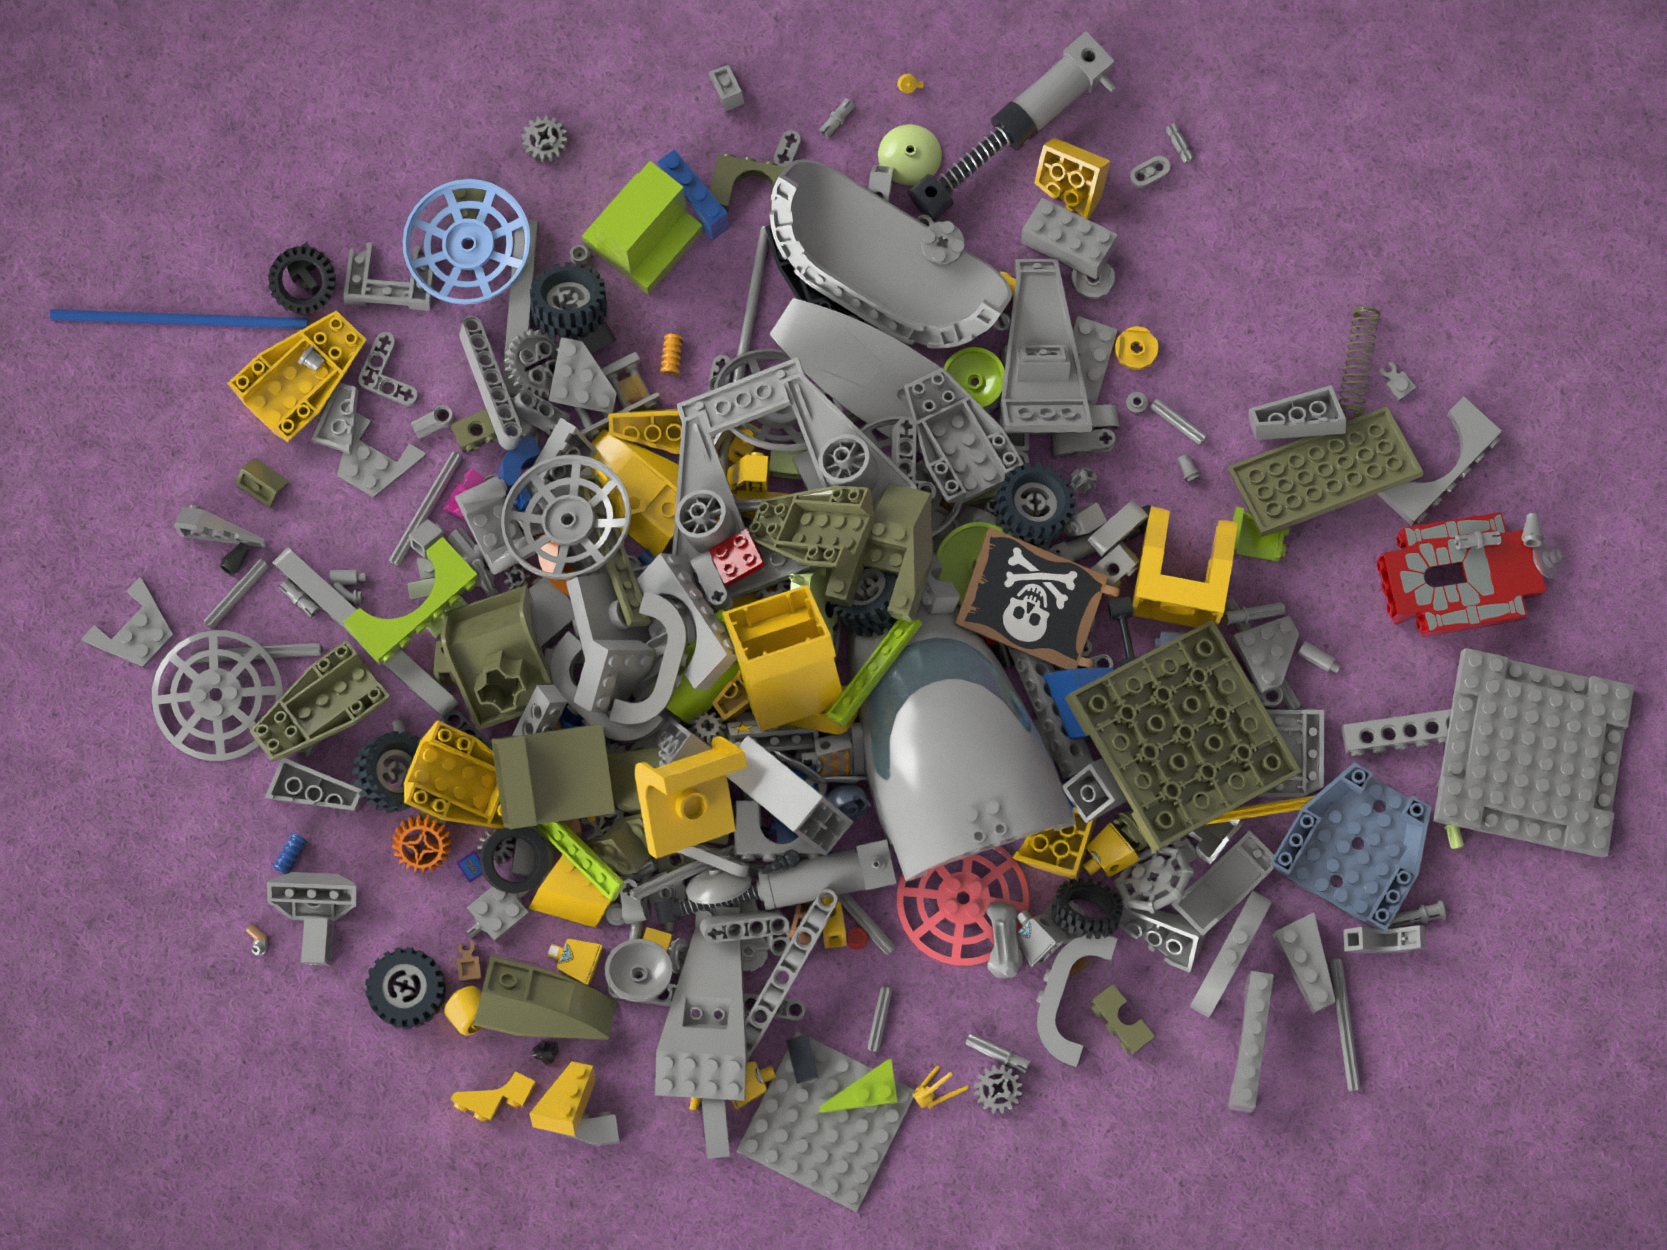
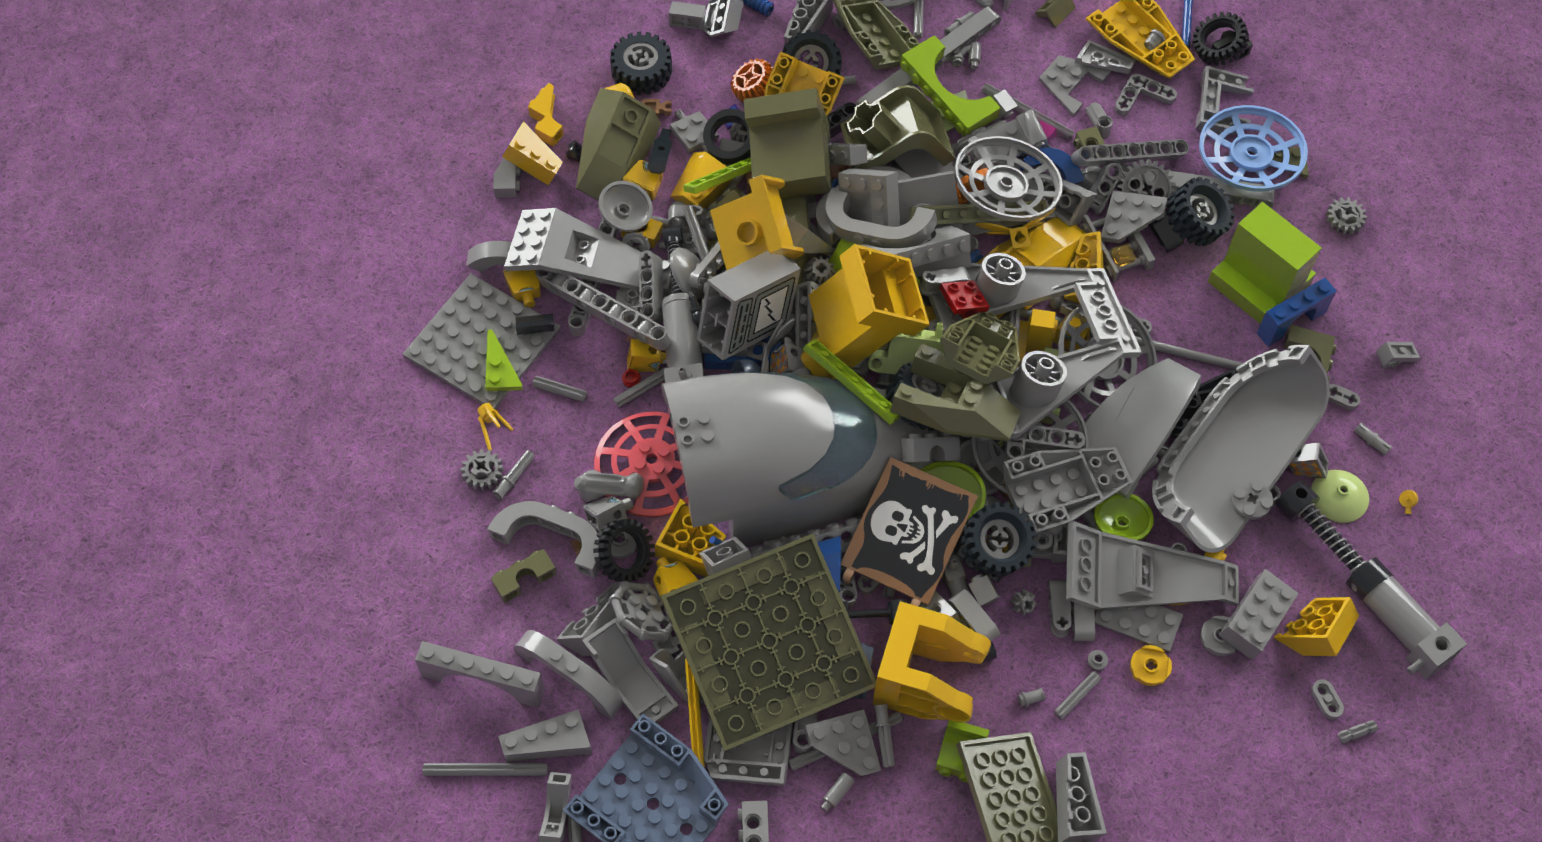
camera: 95 degrees right, 15 degrees down
(552, 943) = (660, 153): none -> black piece
(671, 353) = (1153, 290): light orange piece -> none

